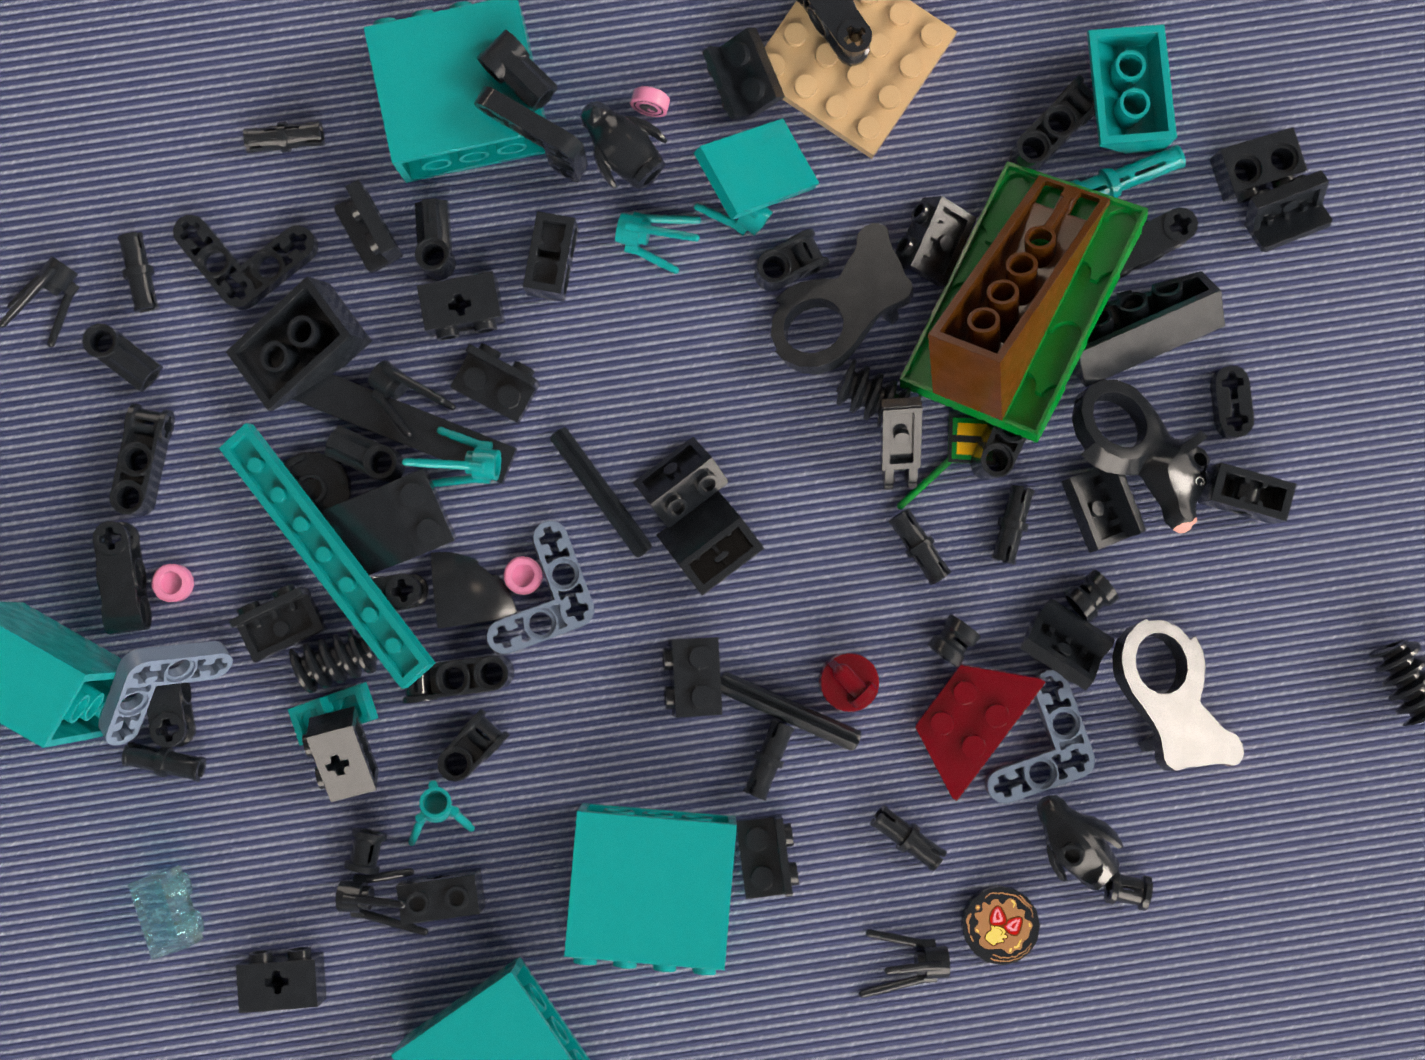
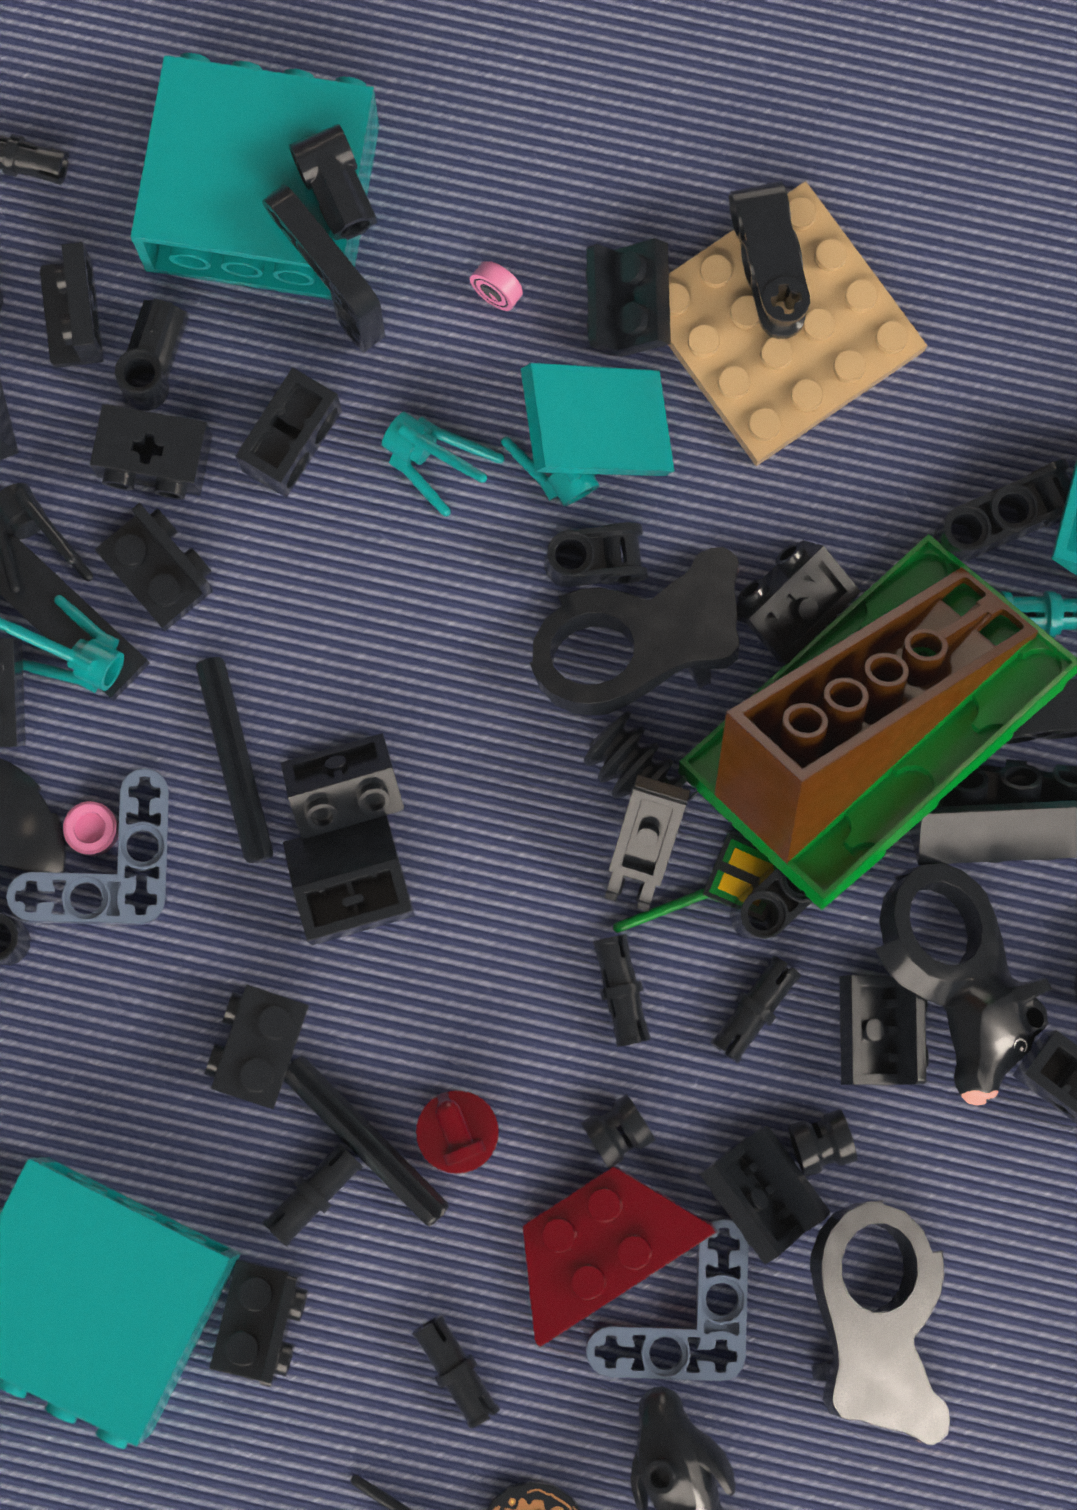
camera: 20 degrees right, 5 degrees down
(623, 145) = (438, 328): black animal -> none

